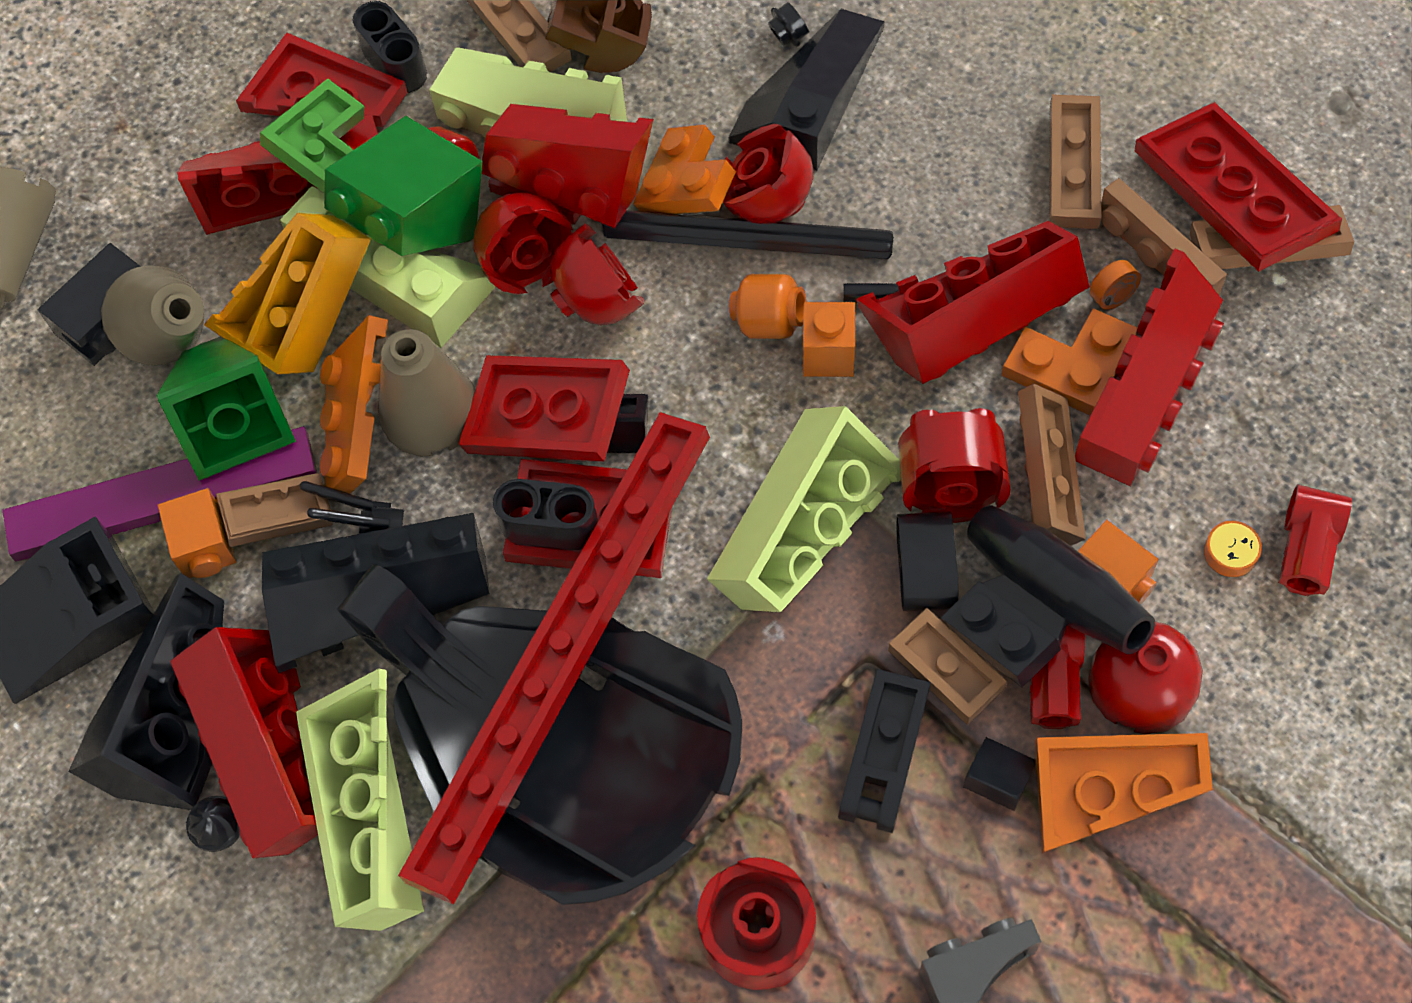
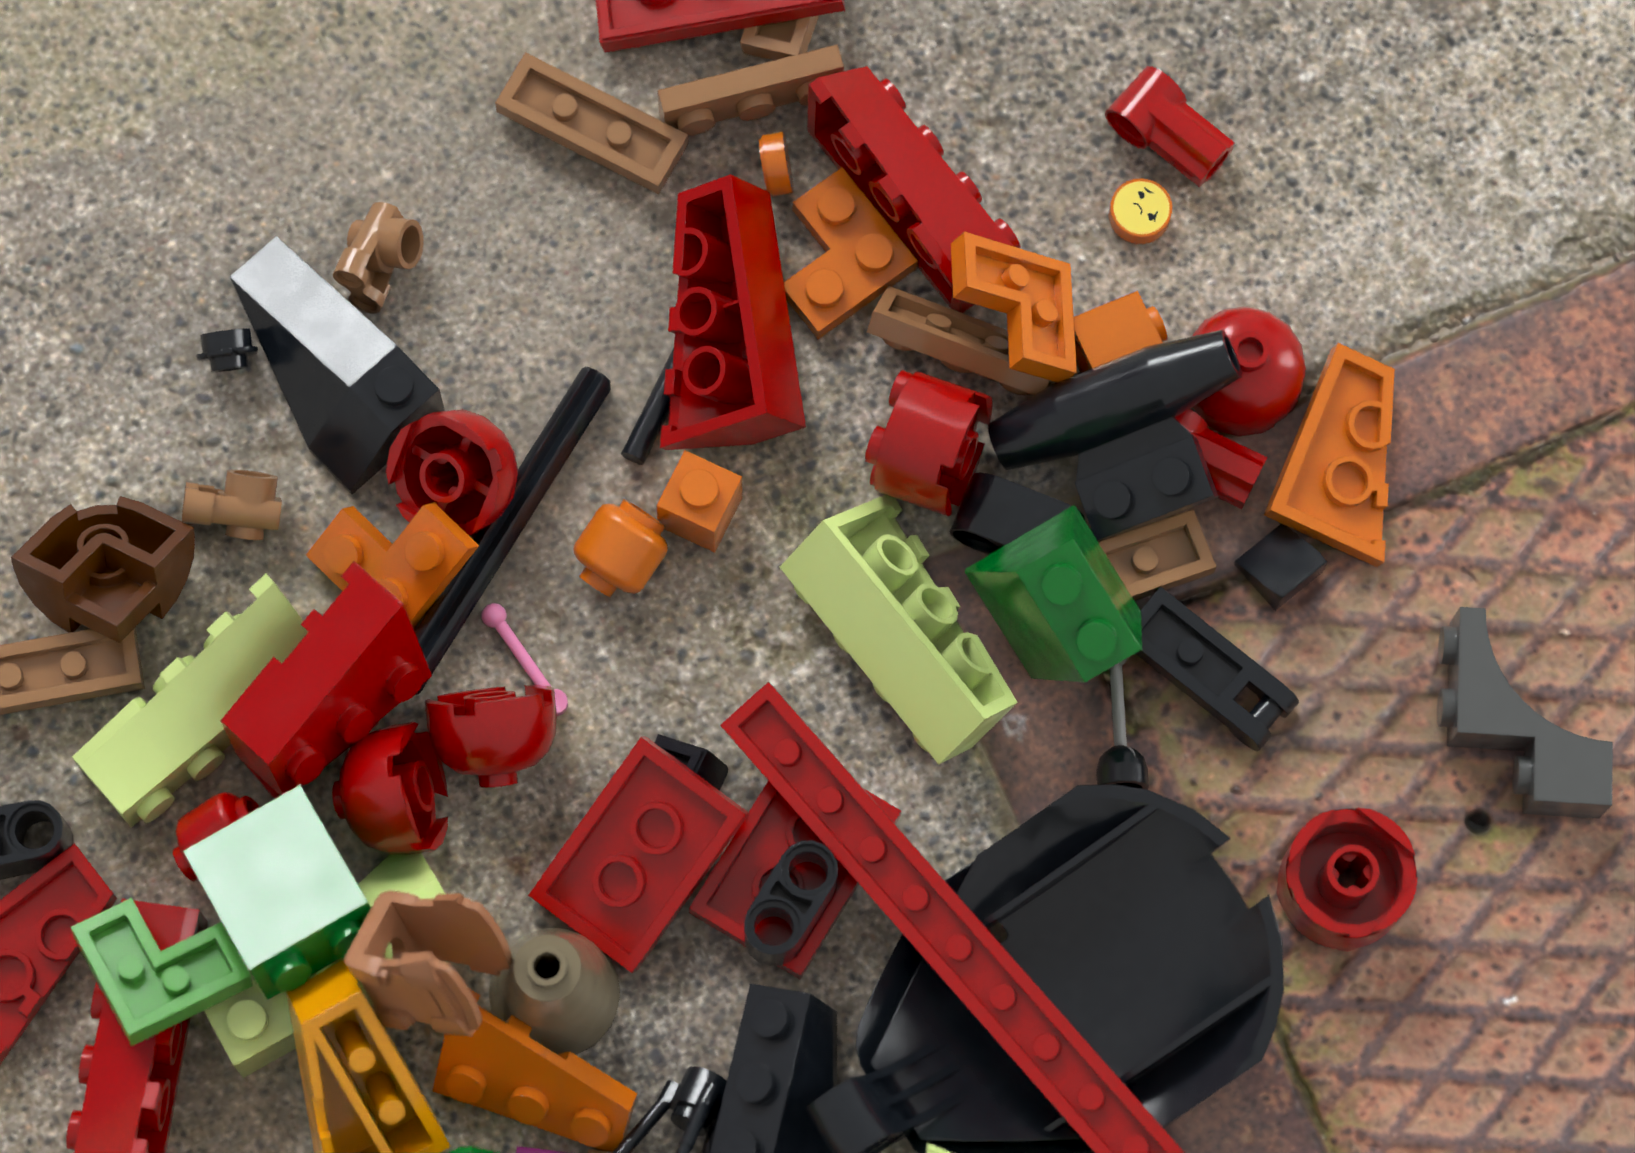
camera: 75 degrees left, 10 degrees up
(403, 275) = (415, 980): none -> nougat piece
(640, 319) = (494, 617): none -> bright pink hinge
(683, 74) = (244, 506): none -> medium nougat plate
(772, 717) = (1121, 763): none -> black hinge
(876, 600) = (1059, 601): none -> green slope
(900, 74) = (373, 251): none -> medium nougat plate
(1110, 474) = (1032, 293): none -> orange plate

